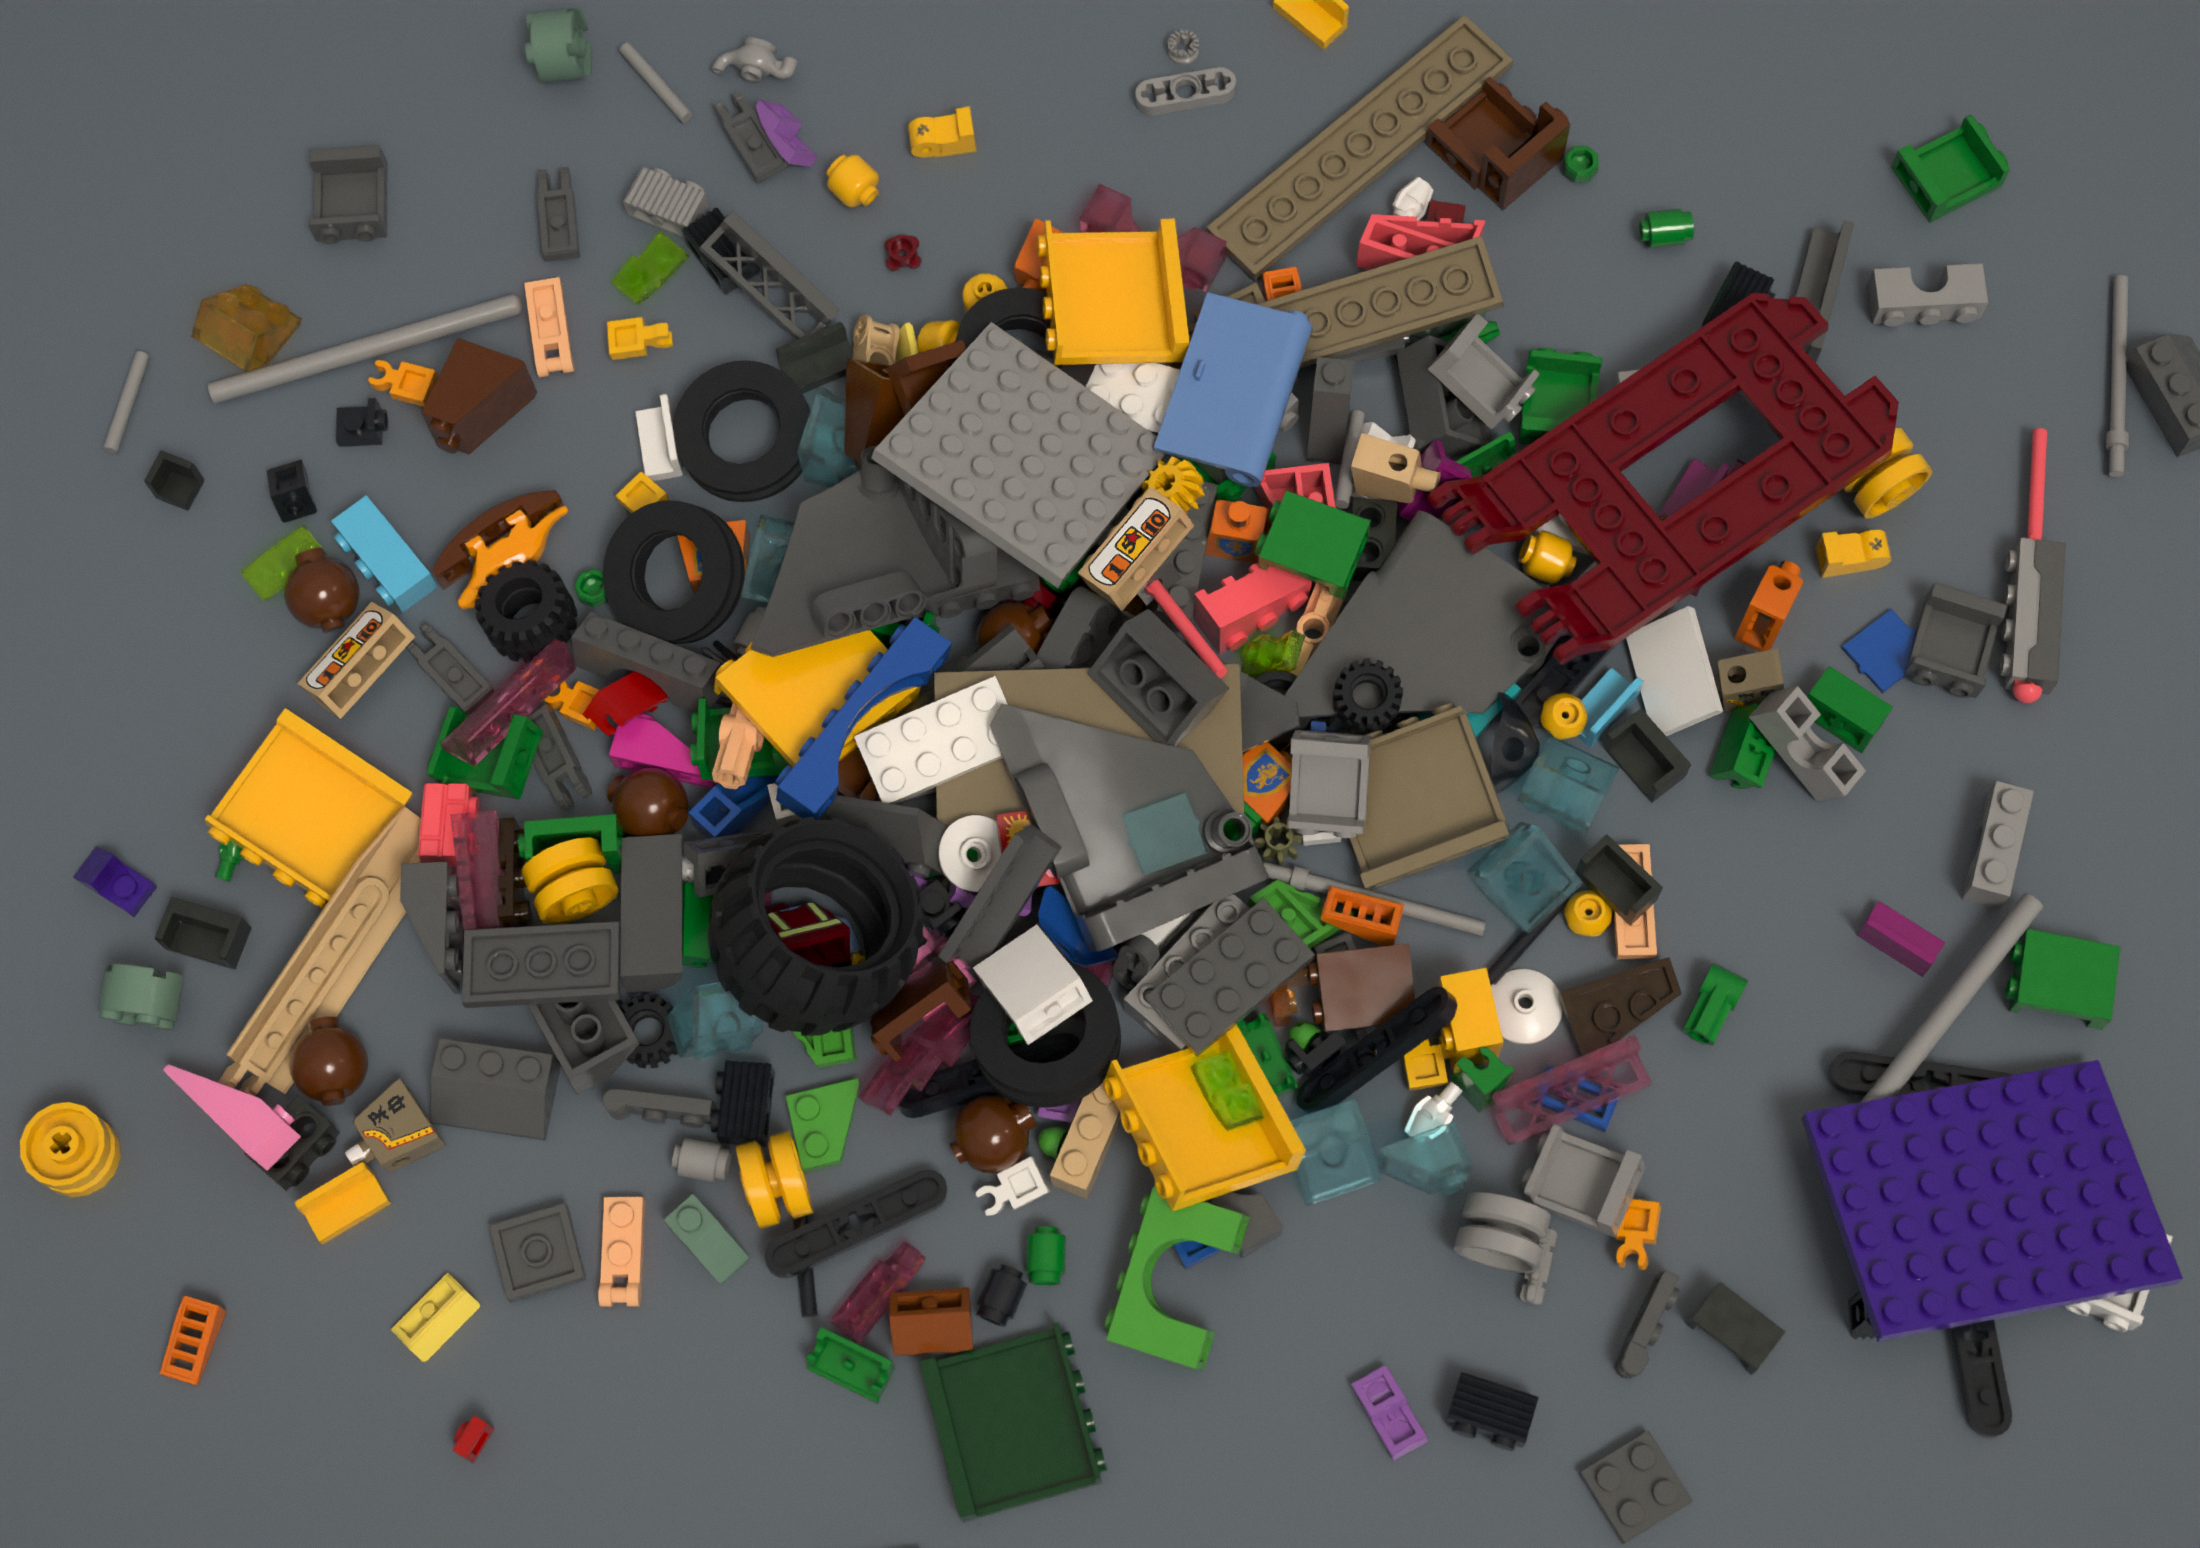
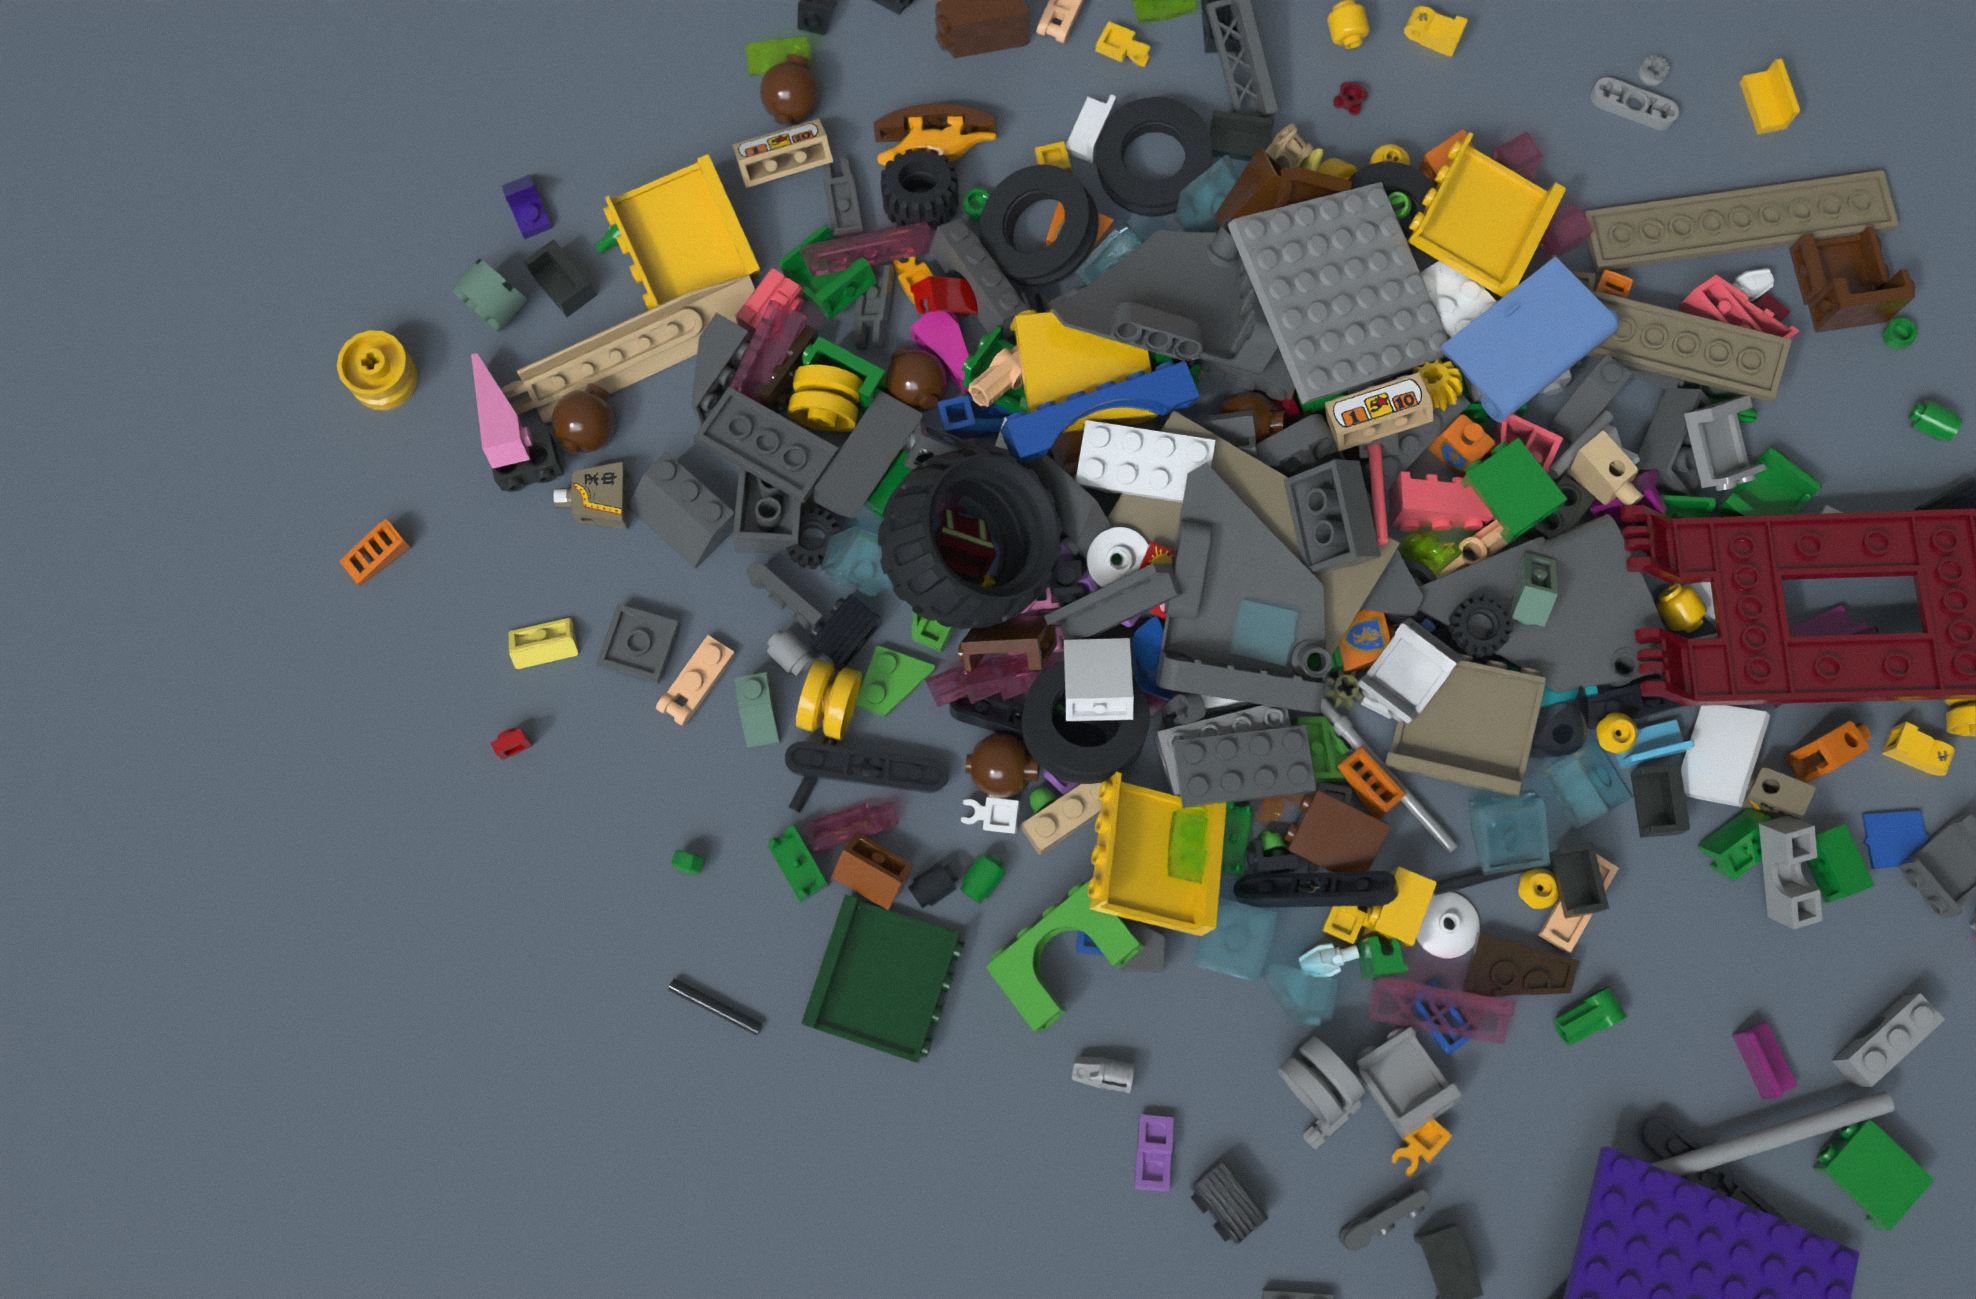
camera: 30 degrees right, 5 degrees up
(343, 1202) = (532, 523): yellow panel -> none
(382, 555) = (848, 91): medium azure brick -> none
(737, 1437) = (688, 862): none -> green tile
(1017, 328) = (1398, 199): none -> bright green hinge
(1290, 1367) = (1104, 1073): none -> light grey hinge
(1396, 627) = (1535, 590): none -> sand green slope

